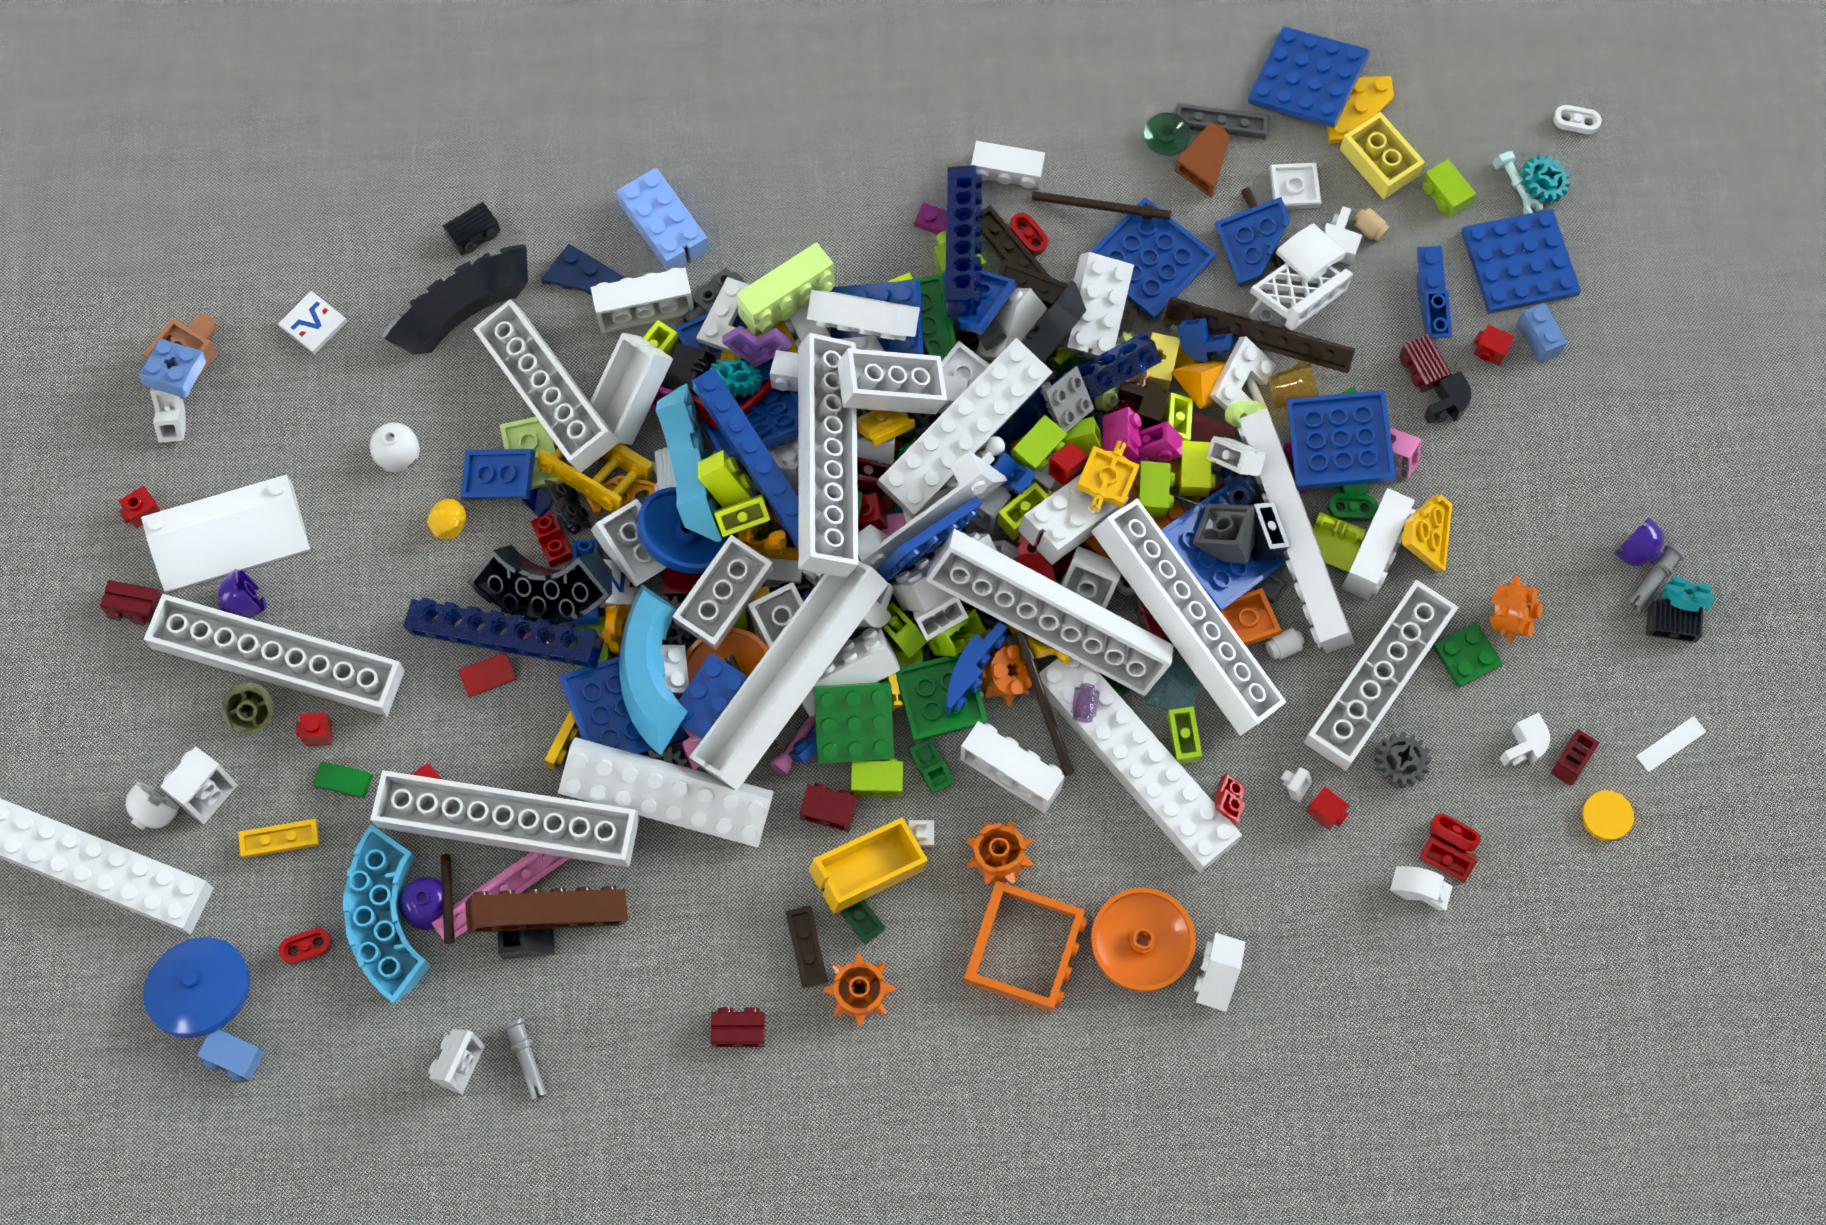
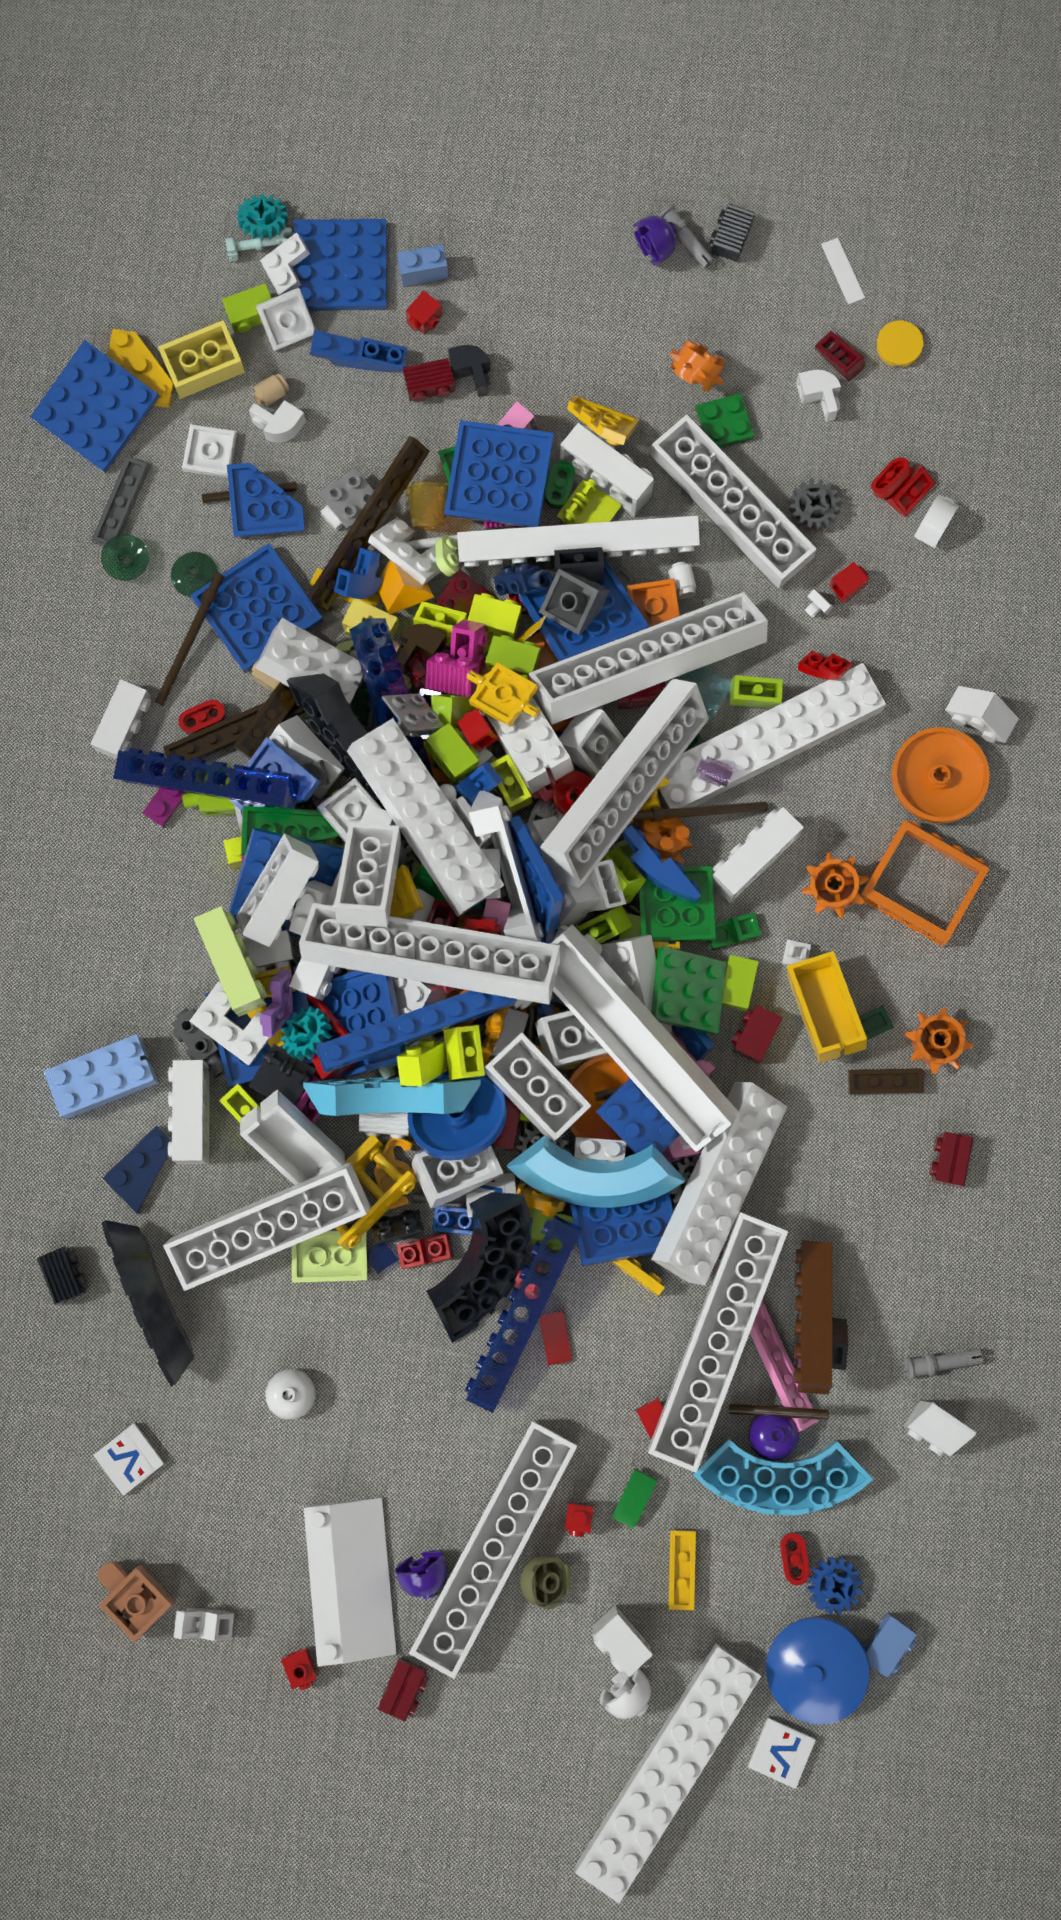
camera: 75 degrees left, 10 degrees up
(113, 970) = (781, 1752): none -> white tile
(172, 368) = (178, 1607): medium blue brick -> none
(275, 982) = (824, 1583): none -> blue gear
(447, 519) = (381, 1352): yellow hair -> none
(497, 474) = (348, 1292): blue plate -> none
(1181, 200) = (186, 583): none -> clear green dish
(1203, 159) = (162, 527): dark orange slope -> none
(1236, 456) = (500, 572): white brick -> none
(1301, 307) = (345, 464): white fence -> none
(1310, 252) = (292, 452): white slope -> none
(1446, 220) = (286, 319): none -> white tile
(1502, 205) = (280, 262): none -> white plate
(1576, 119) = (203, 171): white plate -> none
(1688, 595) = (713, 212): teal plate -> none

